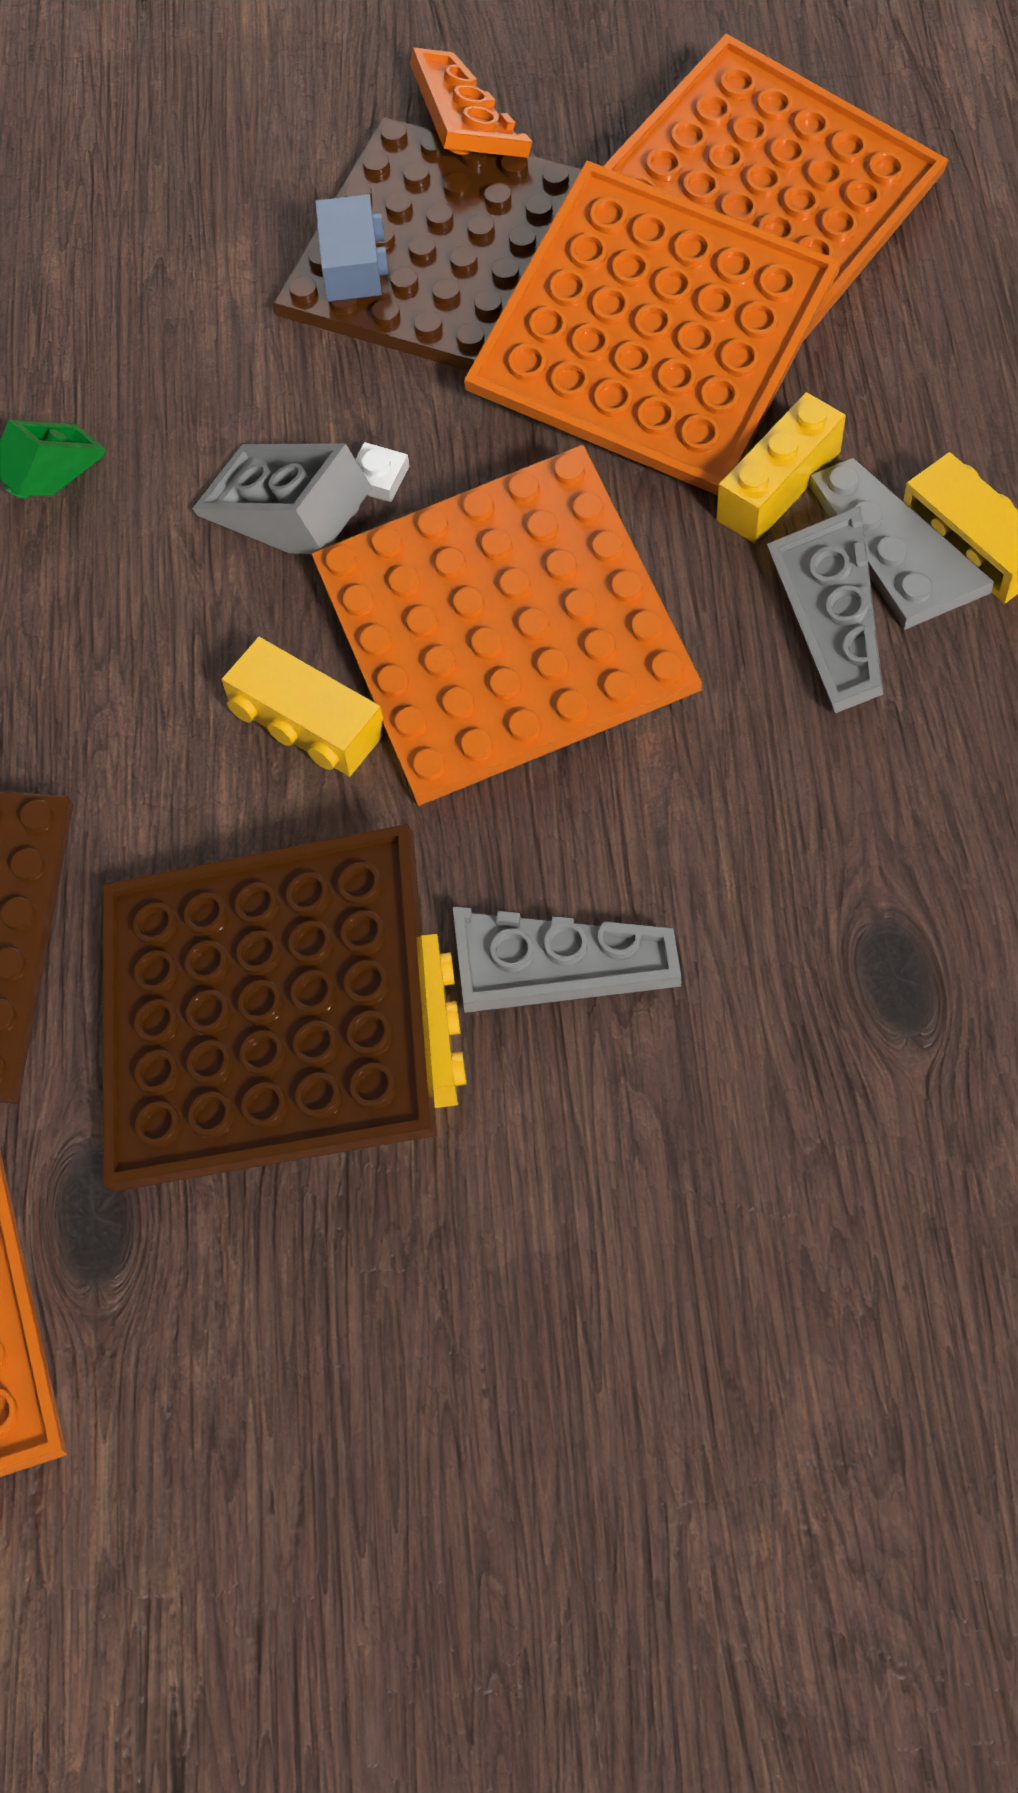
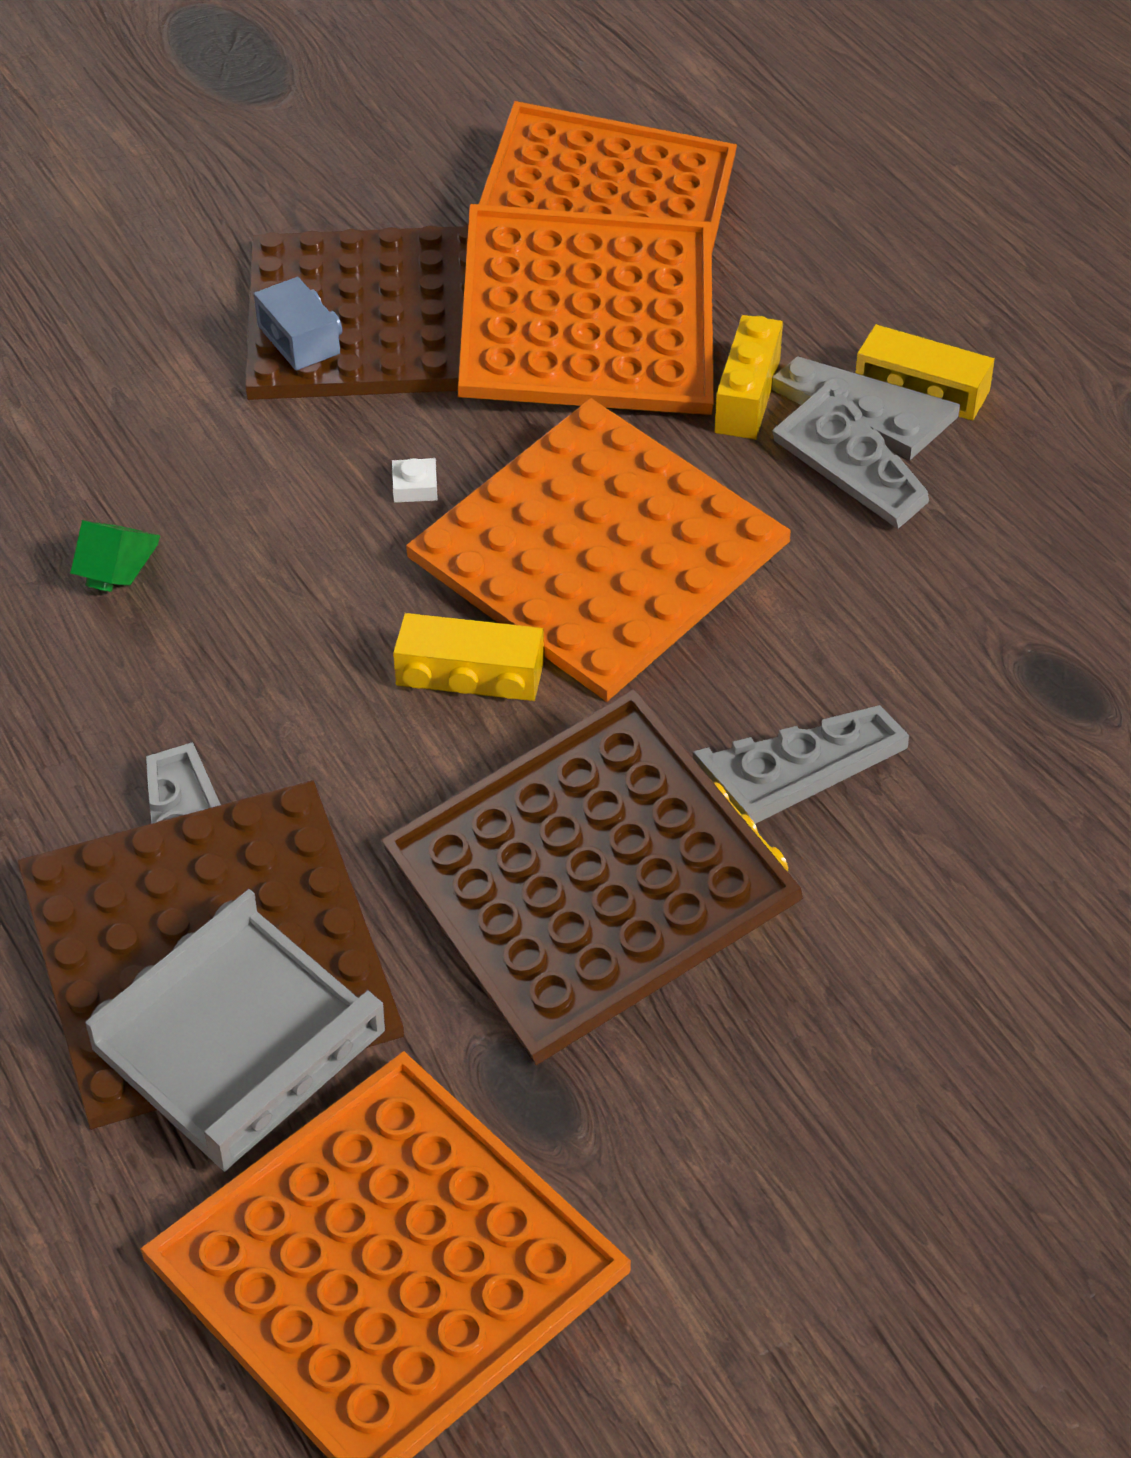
camera: 30 degrees left, 15 degrees down
(287, 494) = (350, 514): light grey slope -> none
(461, 110) = (322, 208): orange wing -> none

